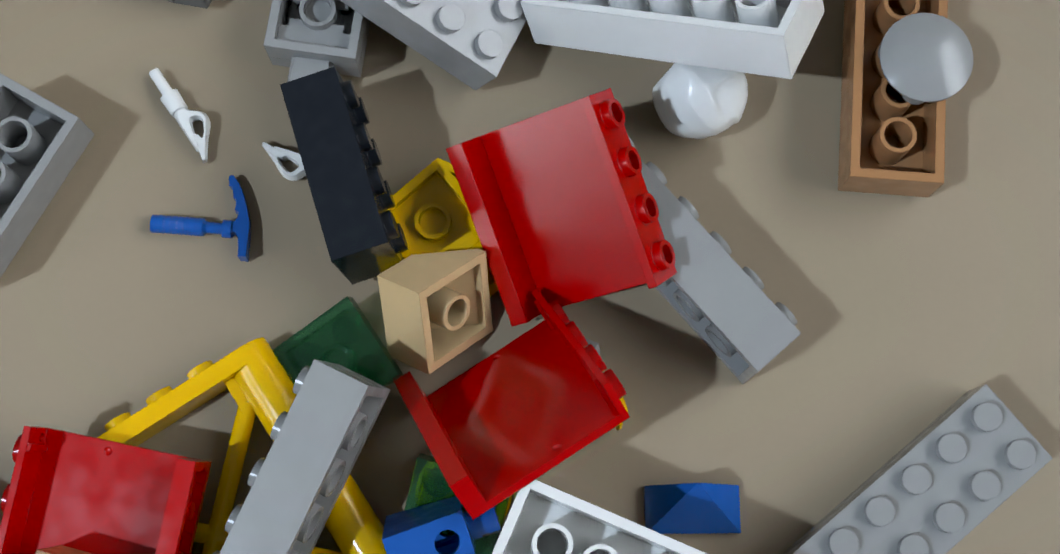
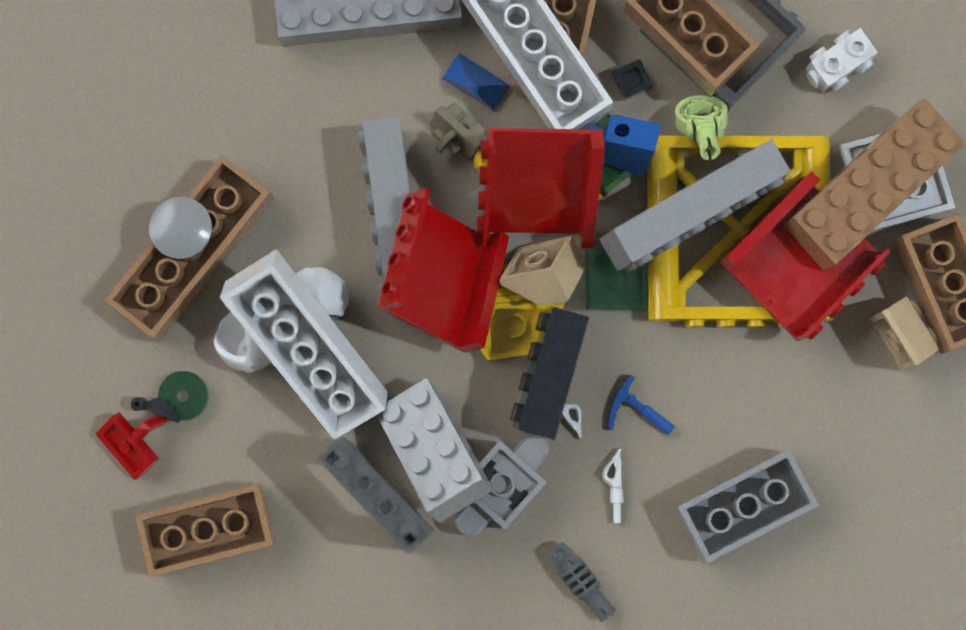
camera: 145 degrees left, 5 degrees up
(651, 417) = (453, 134): none -> dark tan hips

